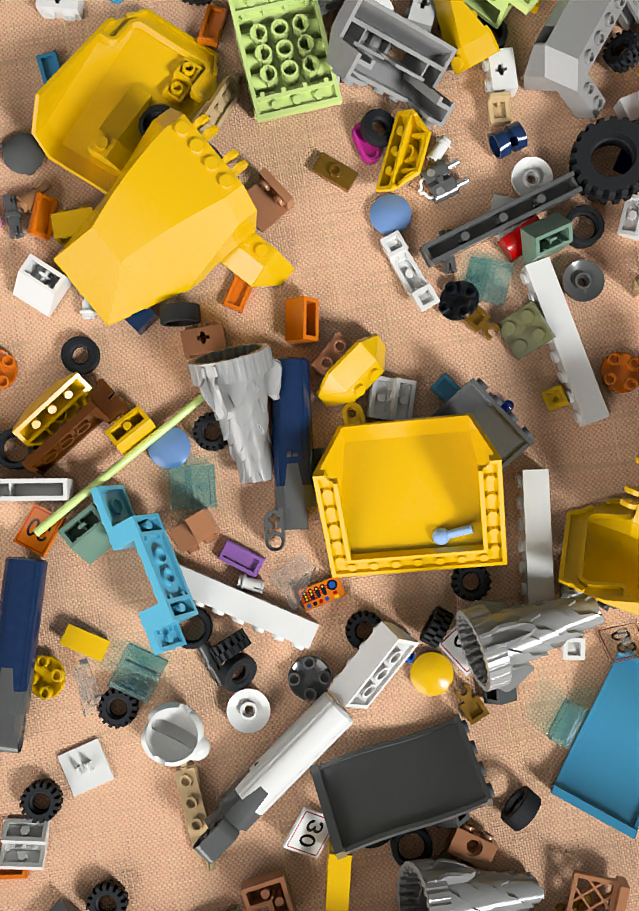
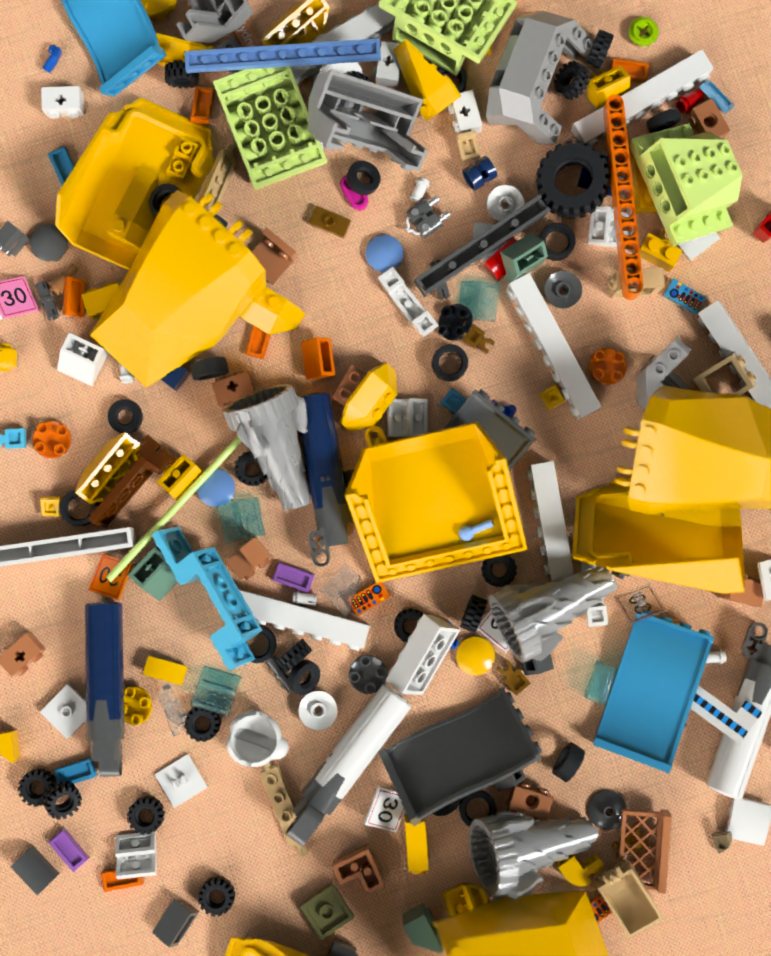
camera: 10 degrees left, 0 degrees up
(404, 151) = (389, 196): yellow wedge -> none
(447, 328) = (450, 348): none -> black tyre
(525, 330) = (517, 341): olive plate -> none
(551, 857) = (600, 803): none -> dark grey dish

